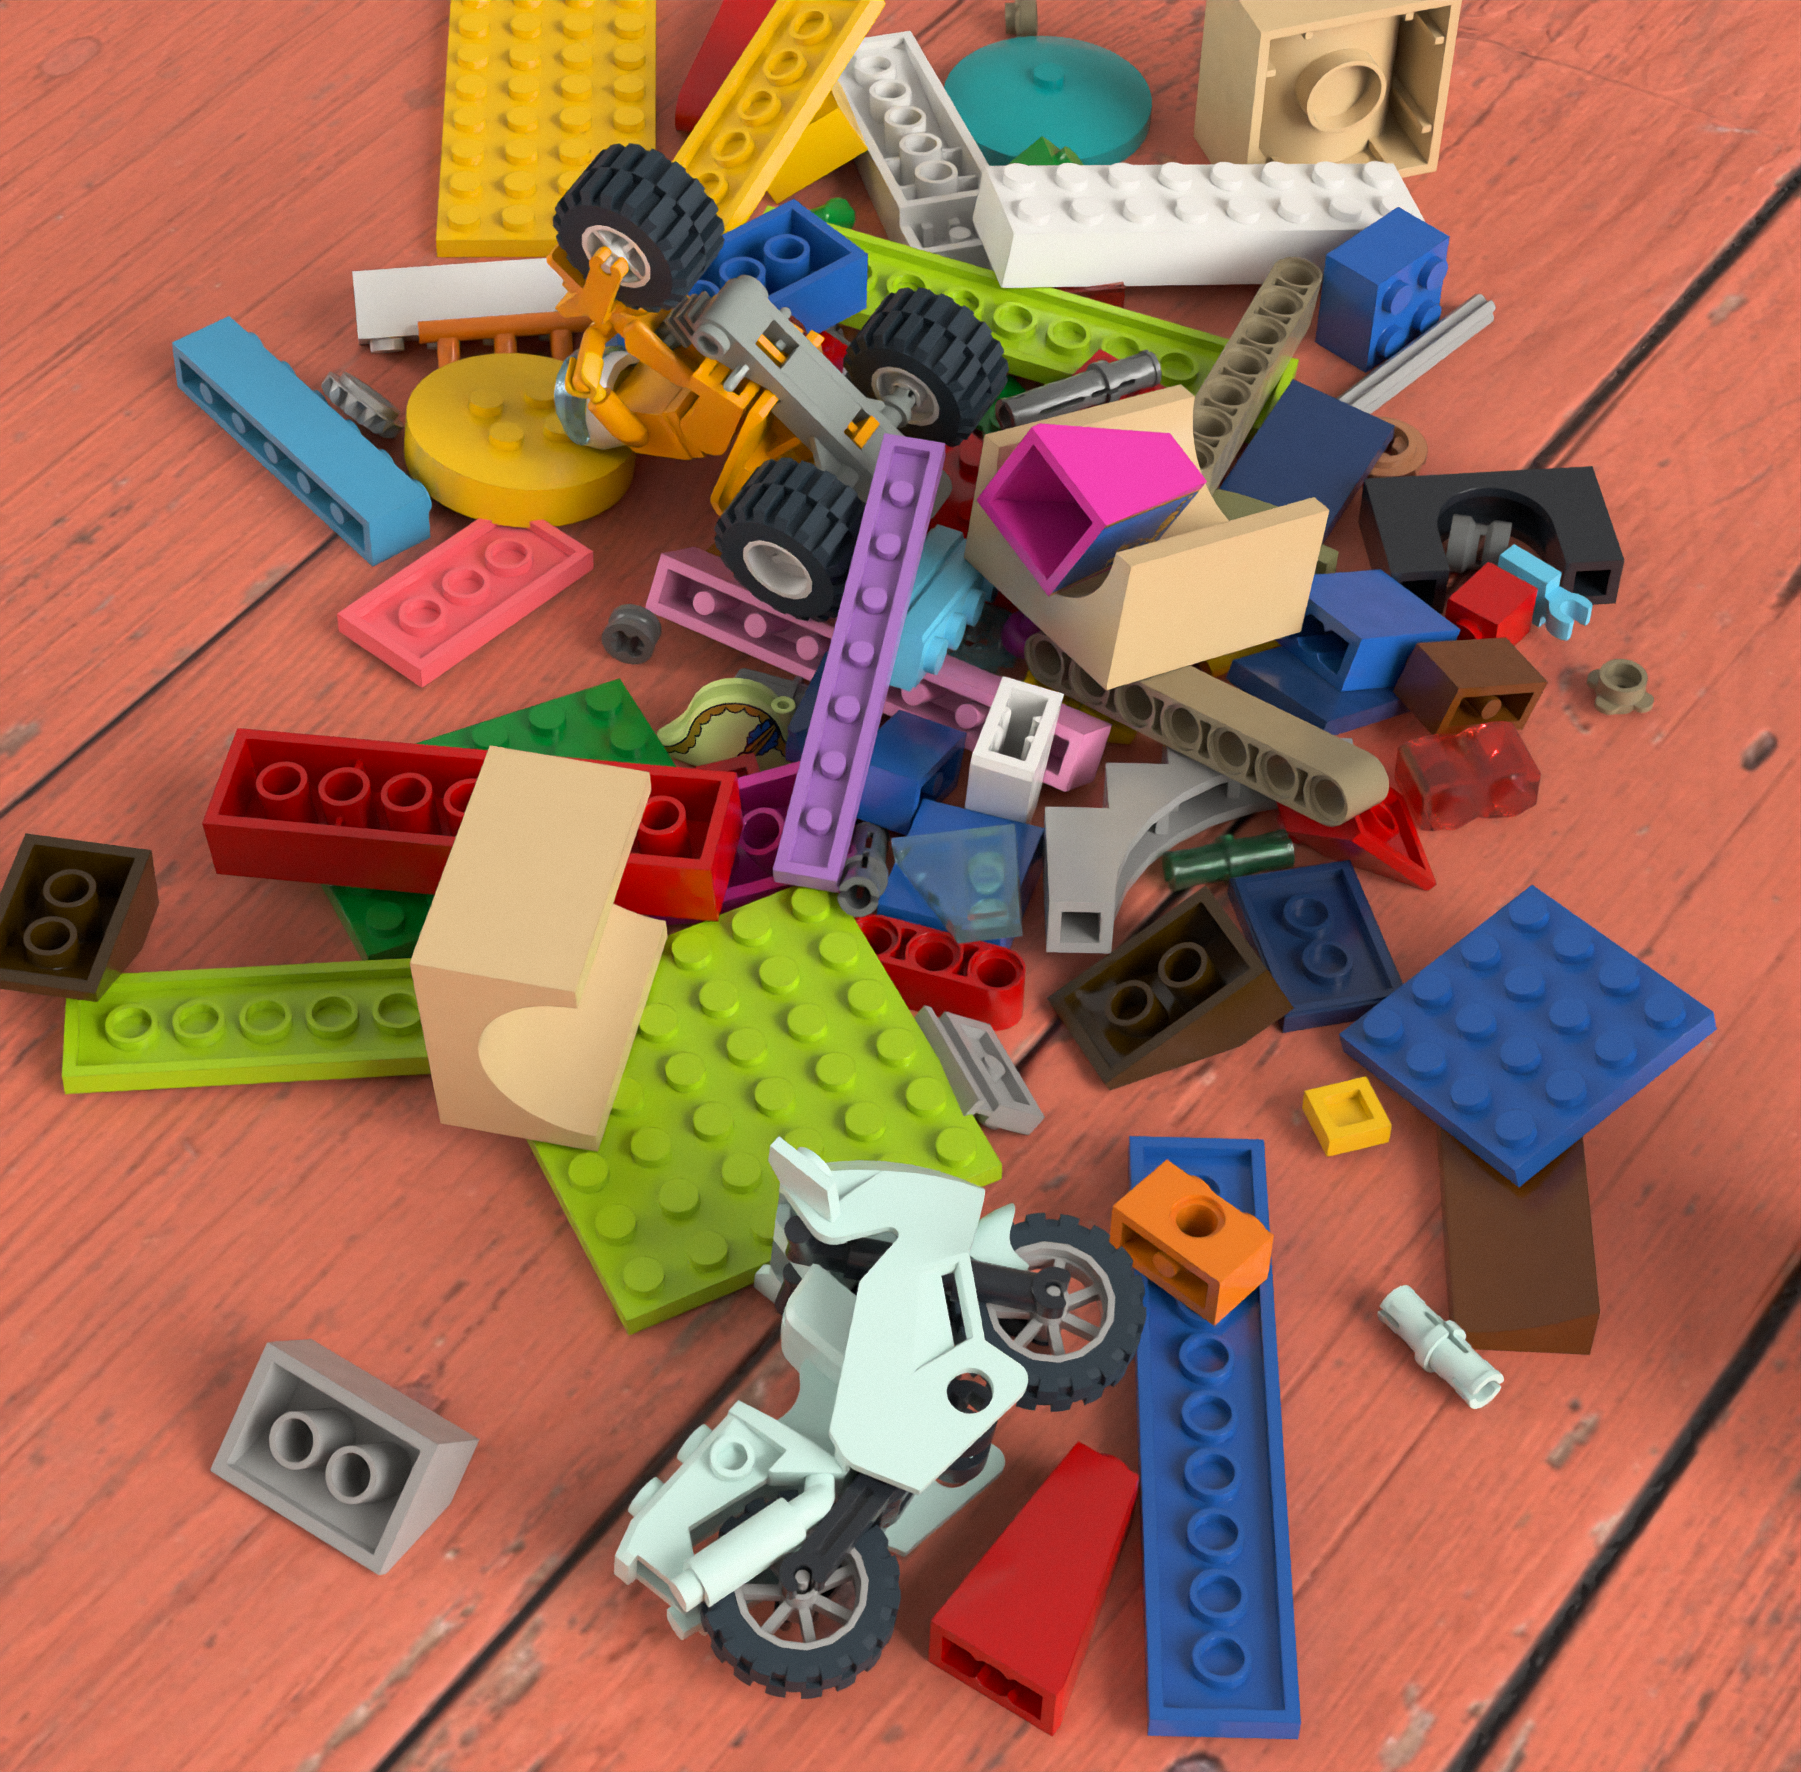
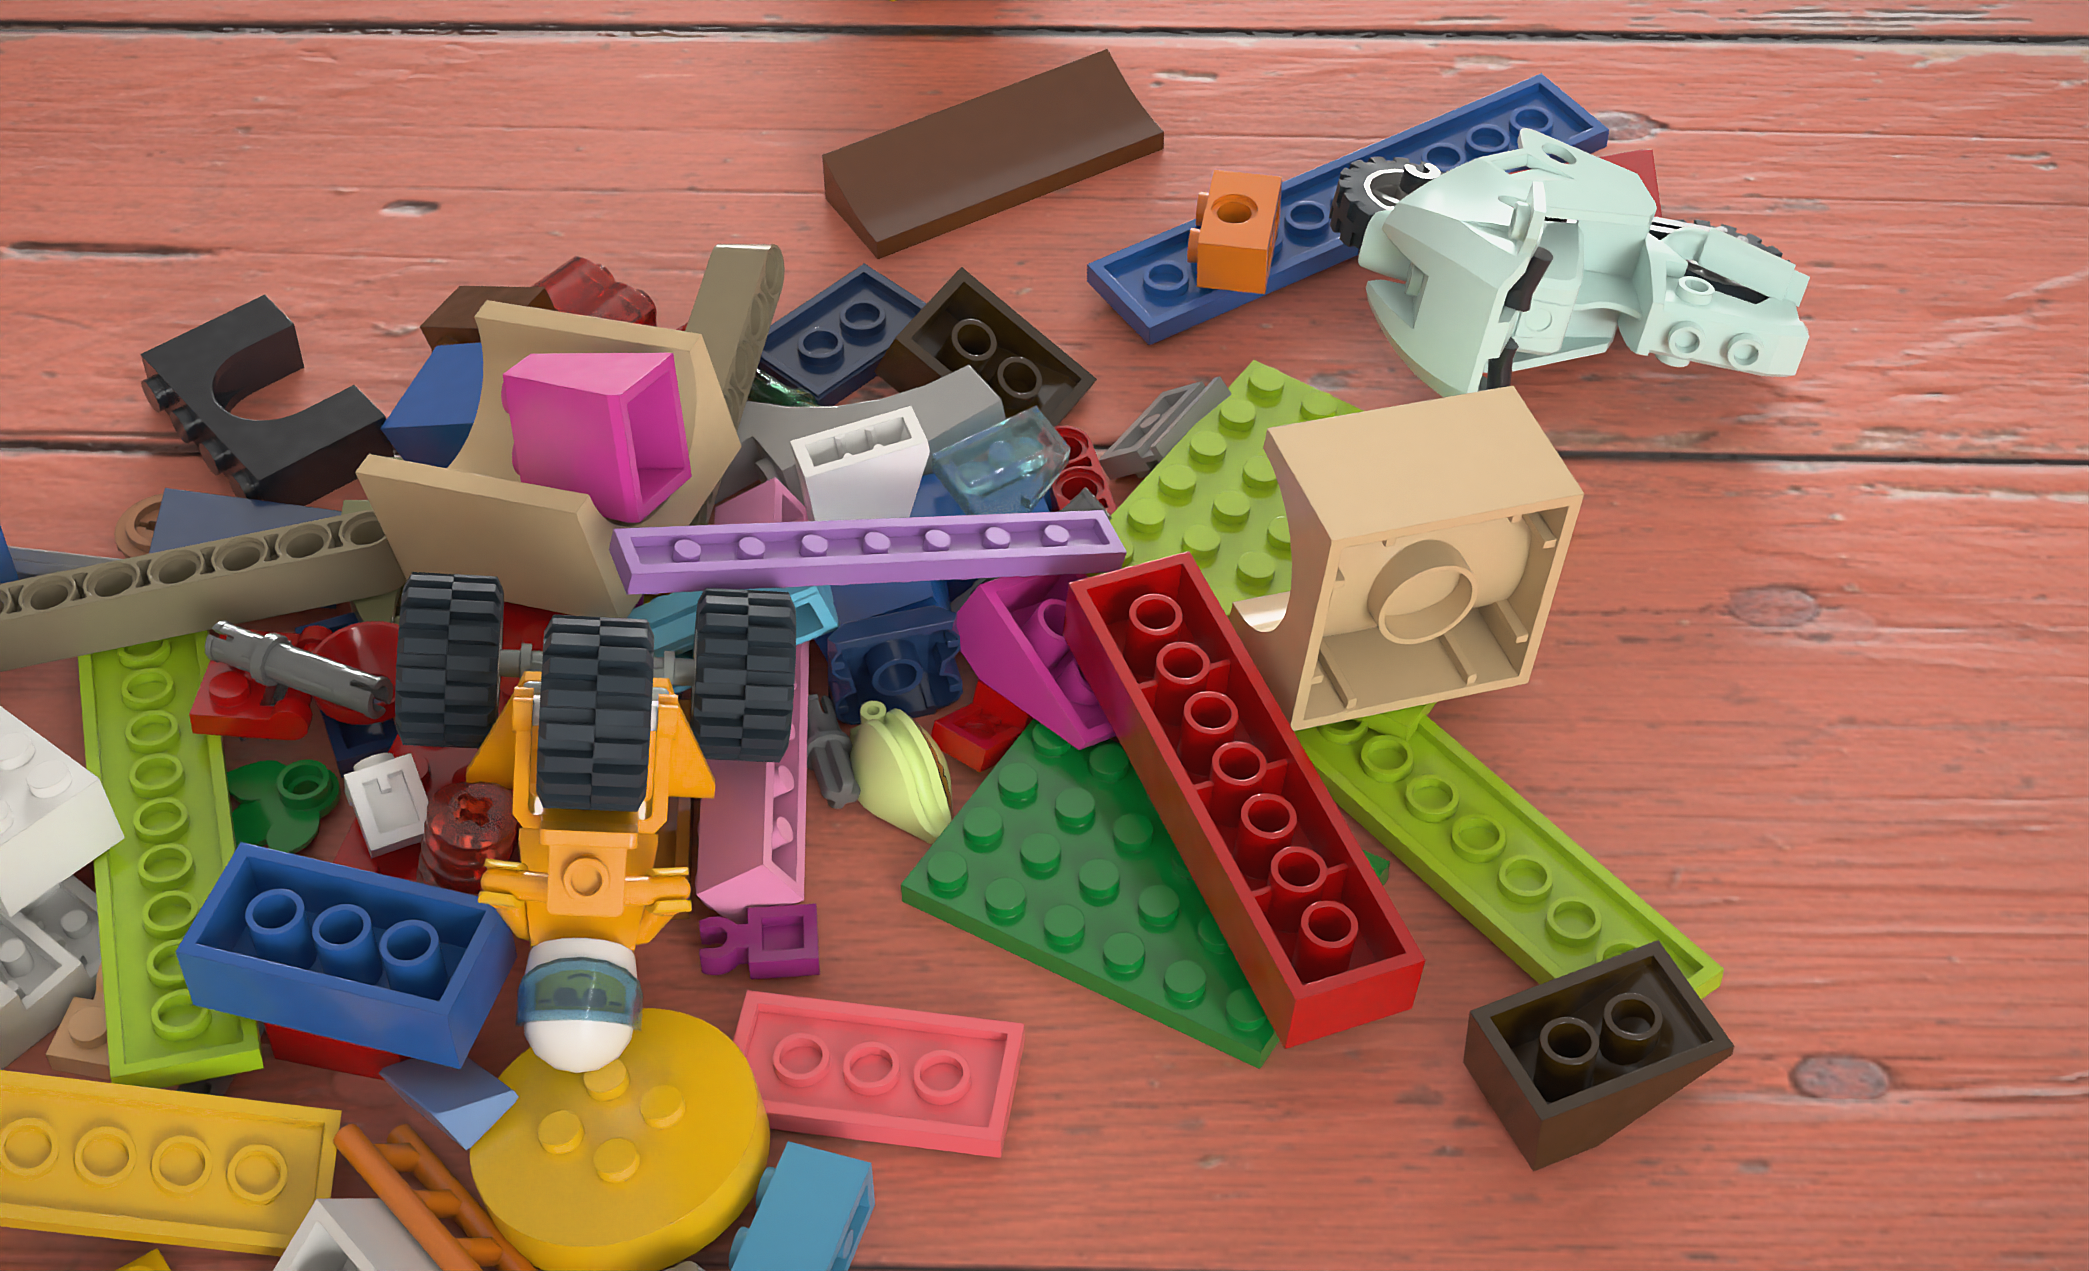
camera: 120 degrees left, 0 degrees up
(342, 1453) = (1843, 584): light grey slope -> none
(623, 584) = (773, 943): none -> magenta plate
(631, 634) = (836, 905): dark grey bush -> none
(1346, 1116) = (1016, 246): yellow plate -> none
(1440, 1347) = (1181, 135): light aqua pin -> none
(1465, 539) = (276, 395): dark grey wheel -> none
(1492, 606) = (376, 363): red brick -> none
(1527, 1034) = (875, 164): blue plate -> none
(1553, 603) = (319, 356): medium azure plate -> none
(1620, 687) = (403, 281): dark tan plate -> none

